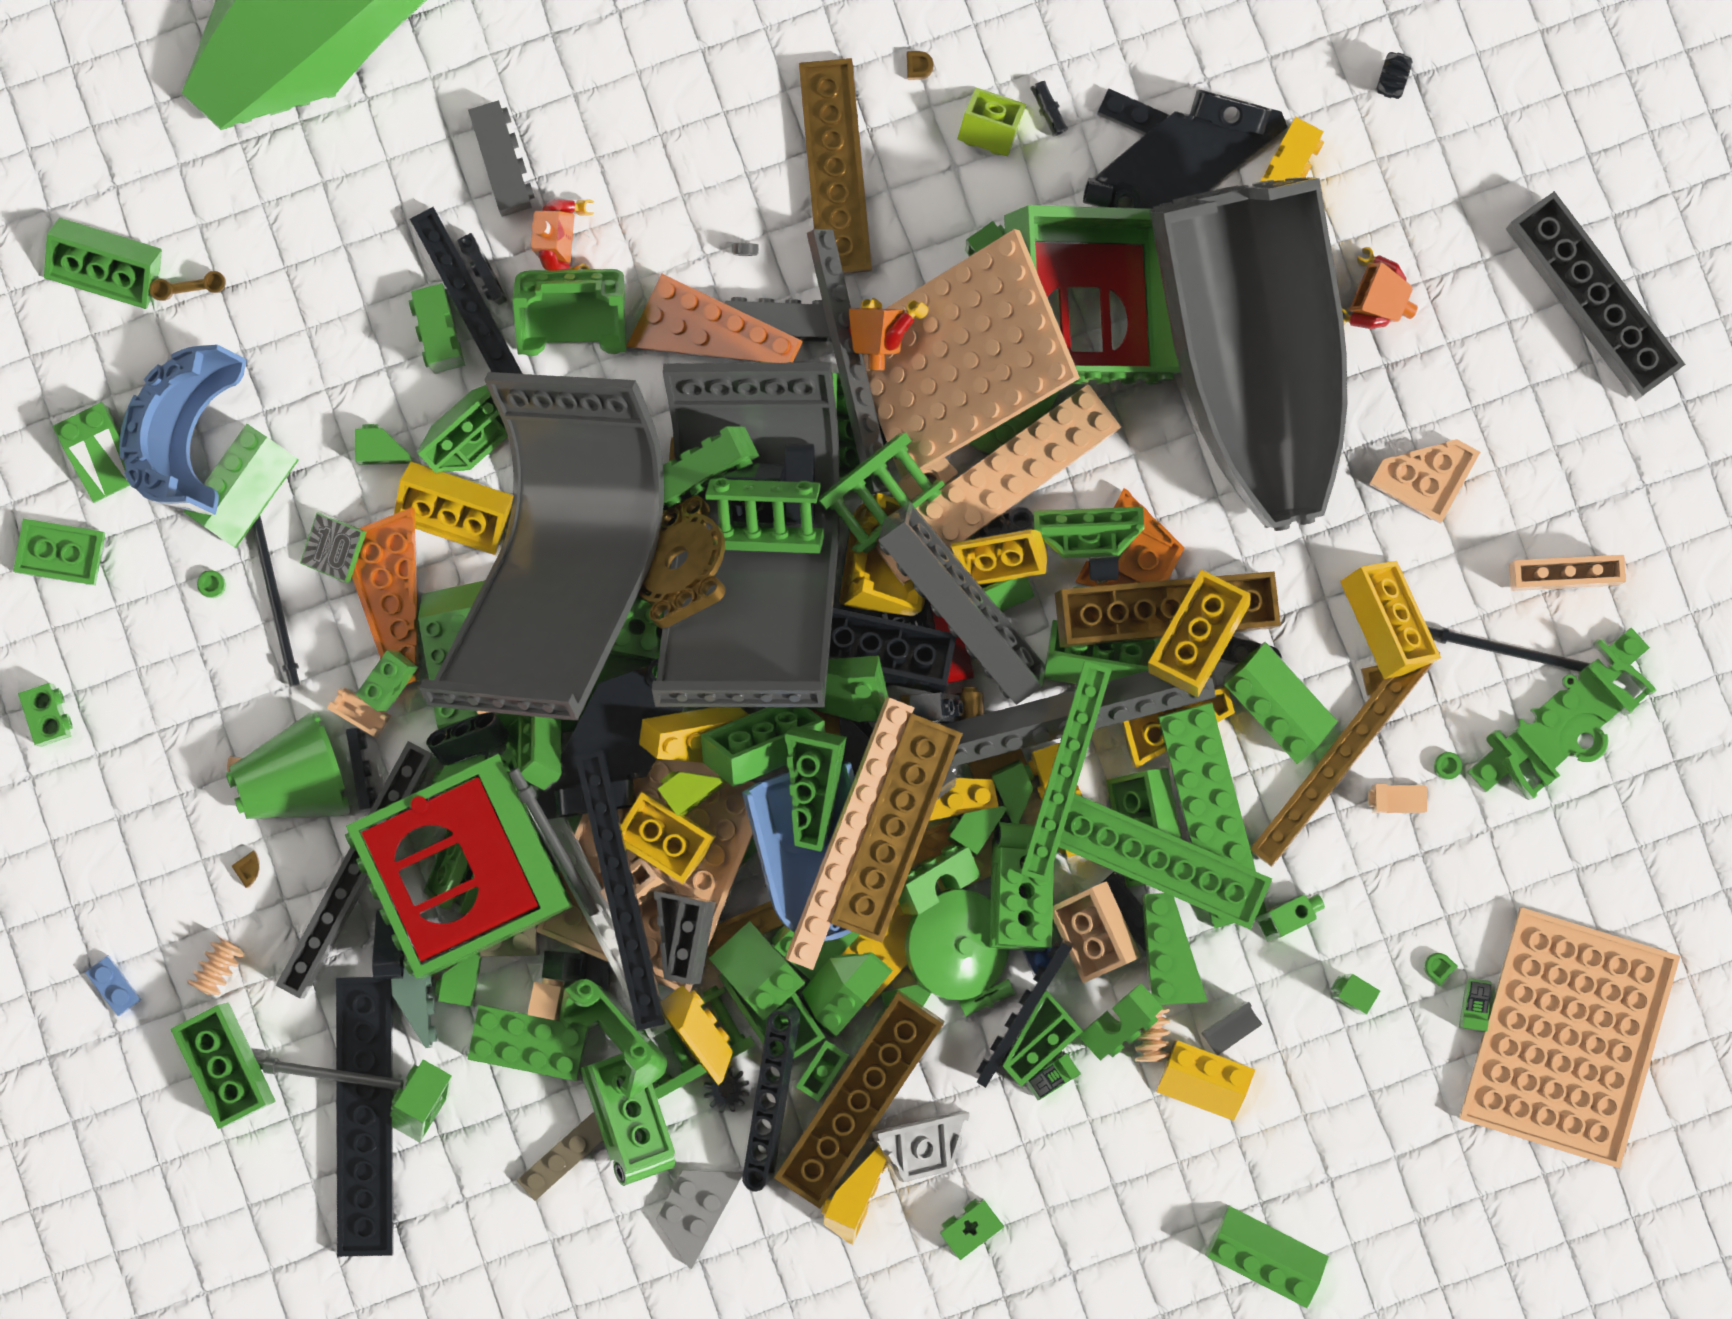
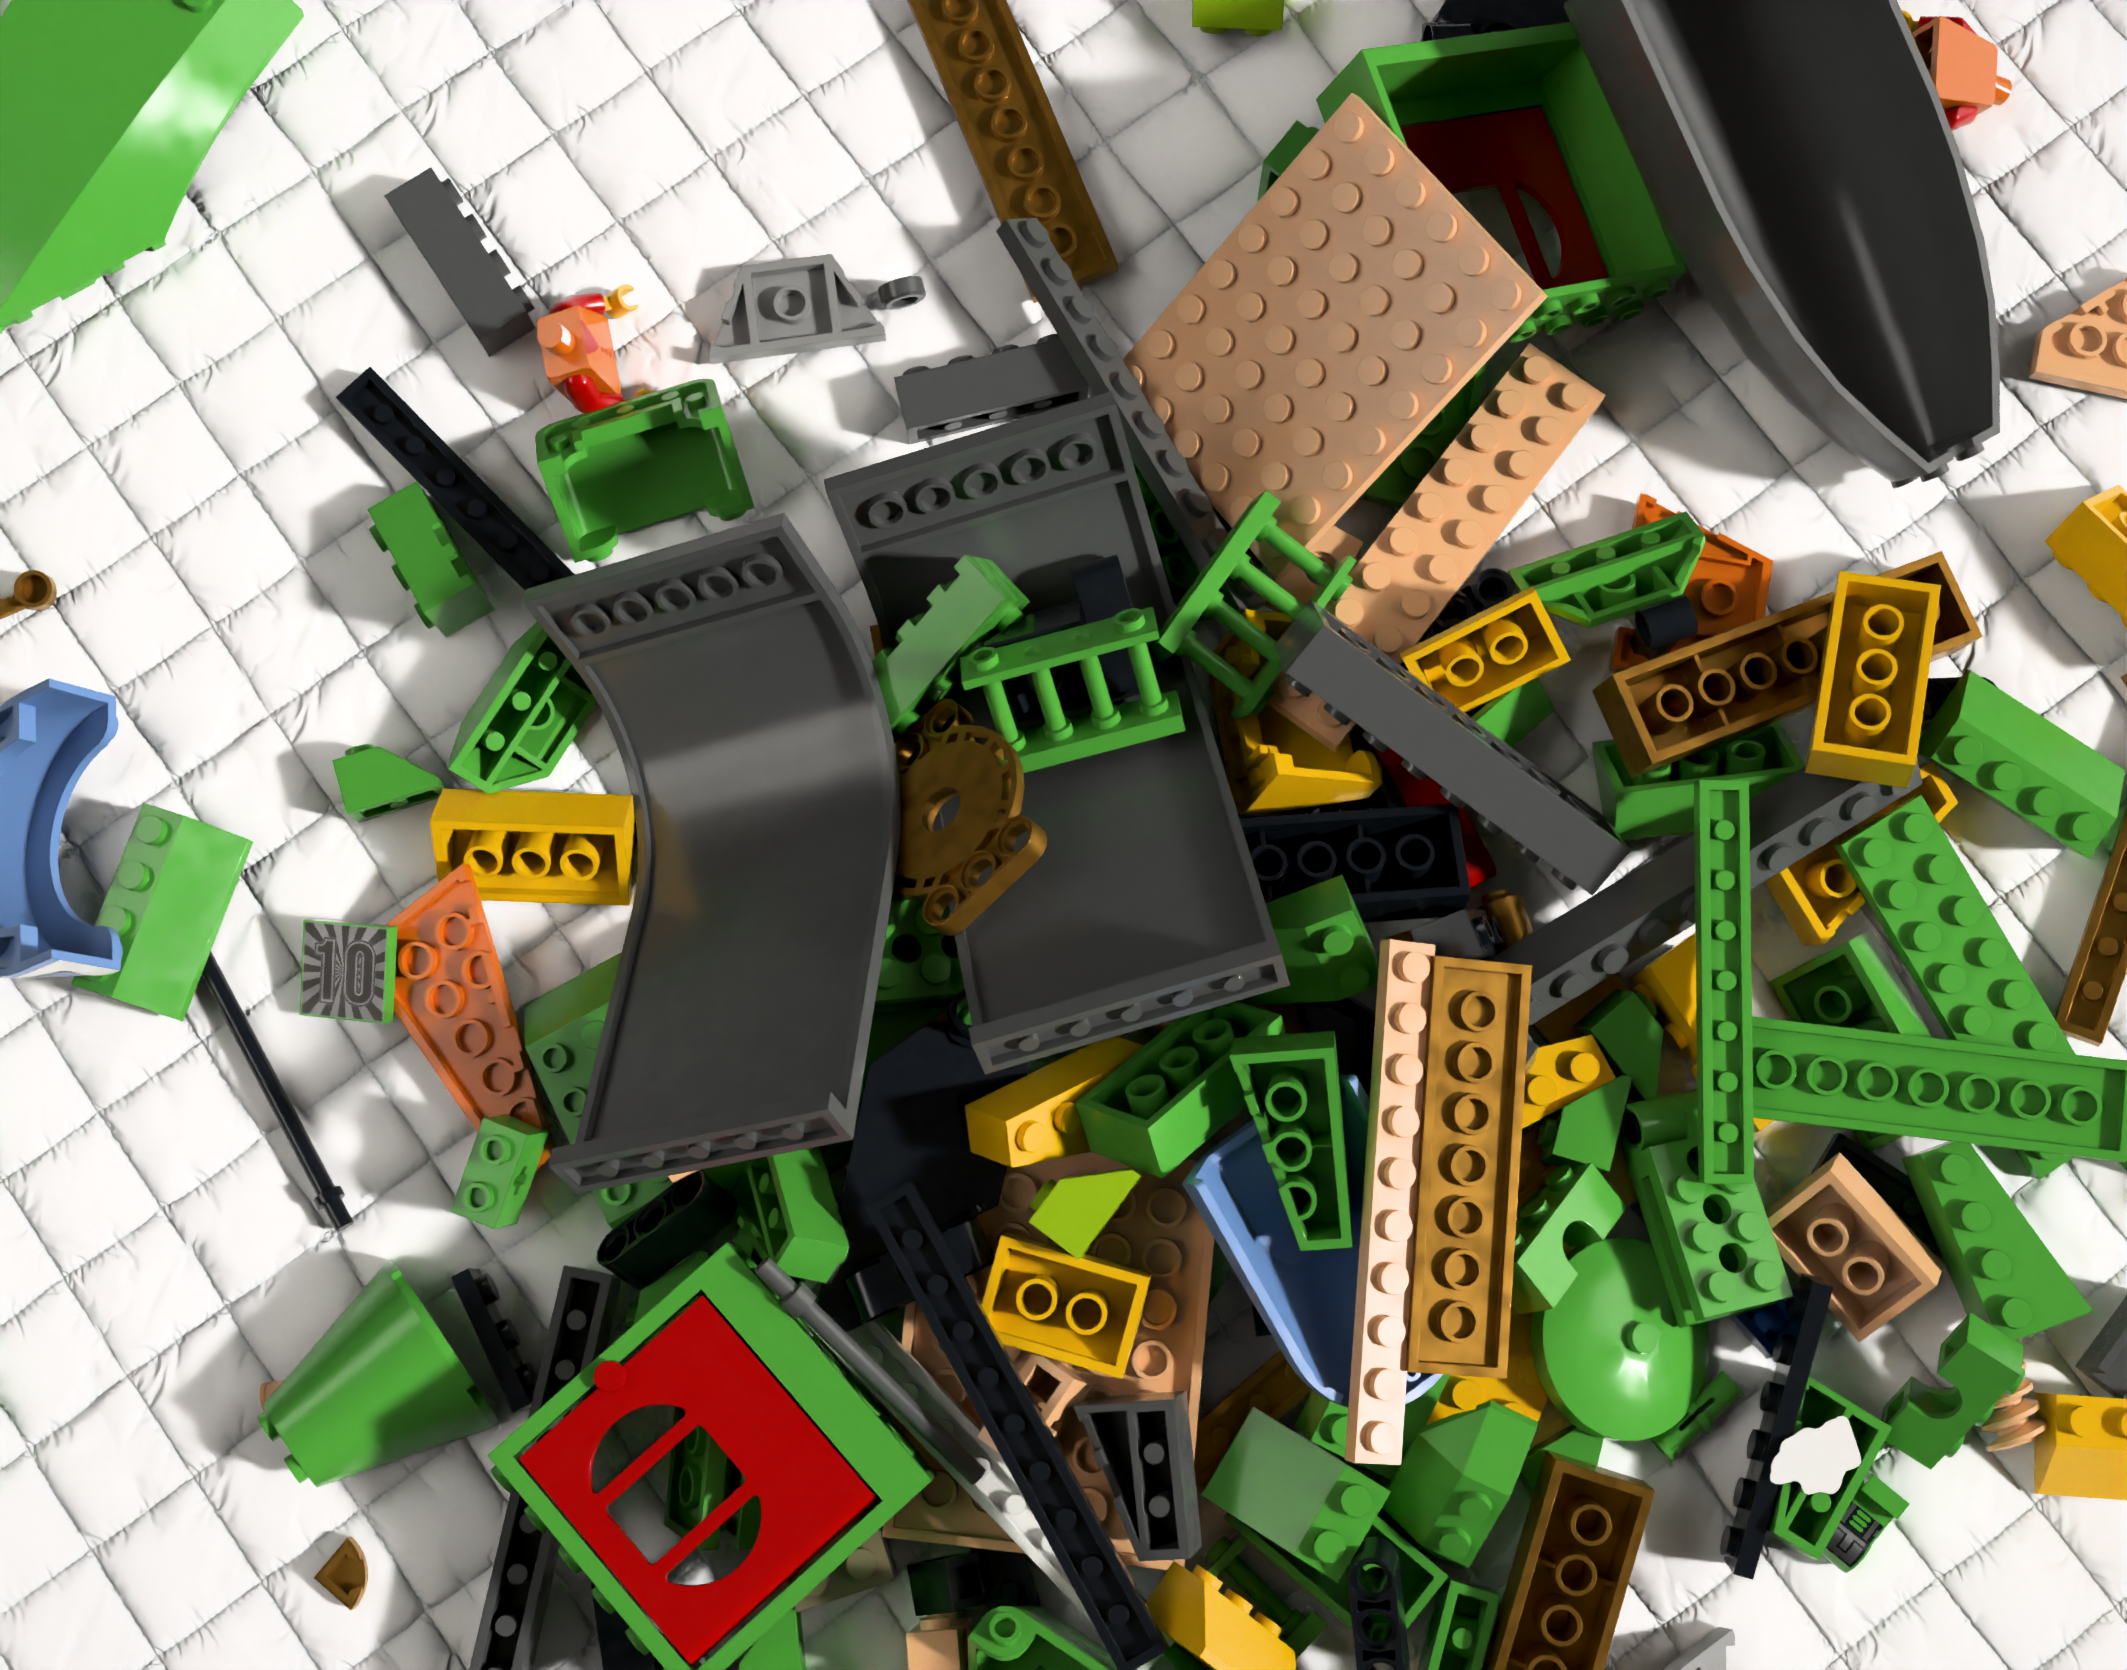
camera: 15 degrees left, 5 degrees down
(211, 584) = (157, 1095): bright green tile -> none
(359, 713) = (468, 1242): light nougat hinge -> none
(482, 267) = (477, 442): black hinge -> none
(680, 241) = (793, 310): none -> light grey wing
(699, 325) = (846, 421): orange wing -> none
(881, 330) = (1171, 340): orange torso -> none
(1037, 1034) = (1817, 1457): none -> white sticker

